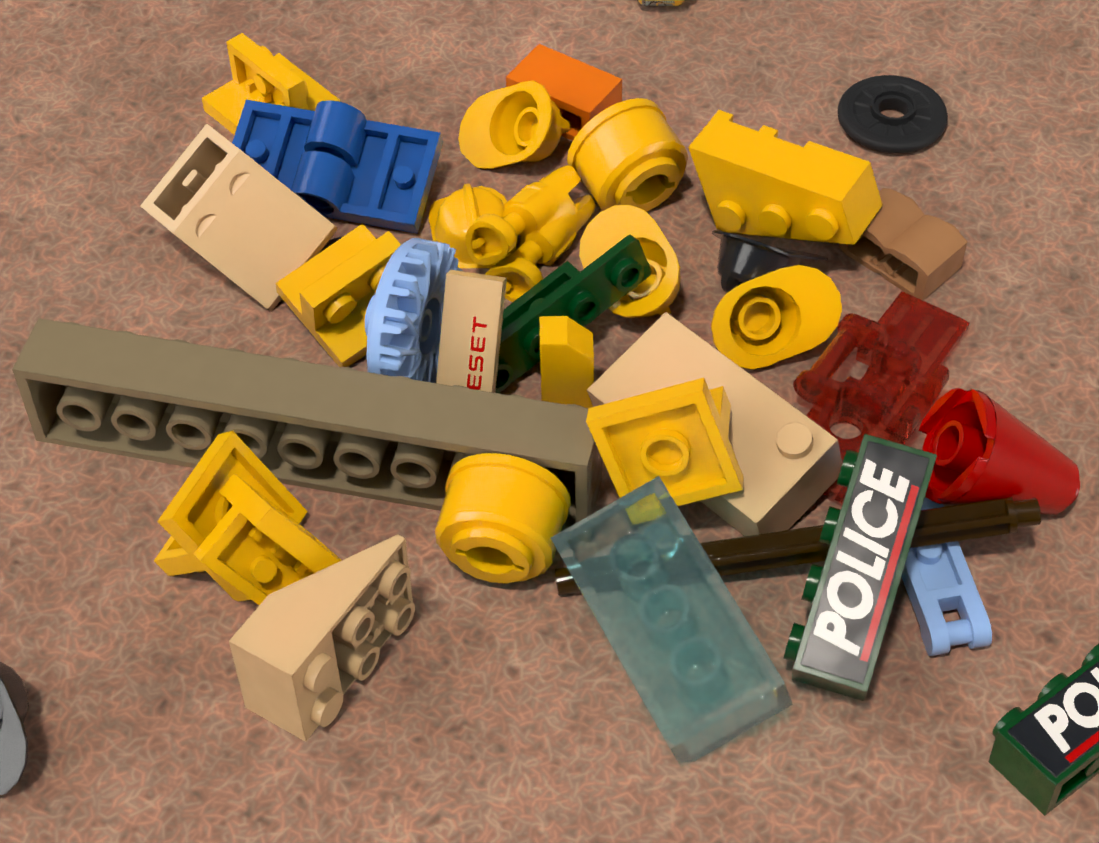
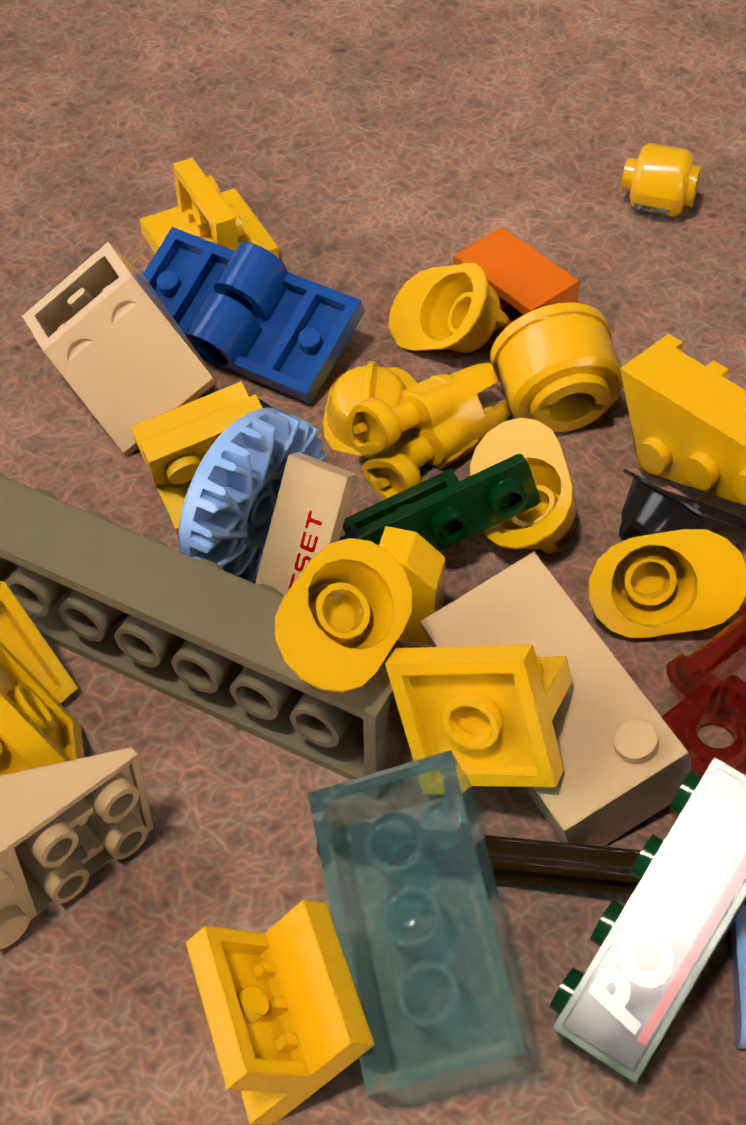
camera: 15 degrees right, 0 degrees up
(501, 517) = (271, 750): yellow wheel -> none
(544, 388) = (343, 615): none -> yellow piece
(580, 705) = (279, 1008): none -> yellow bracket

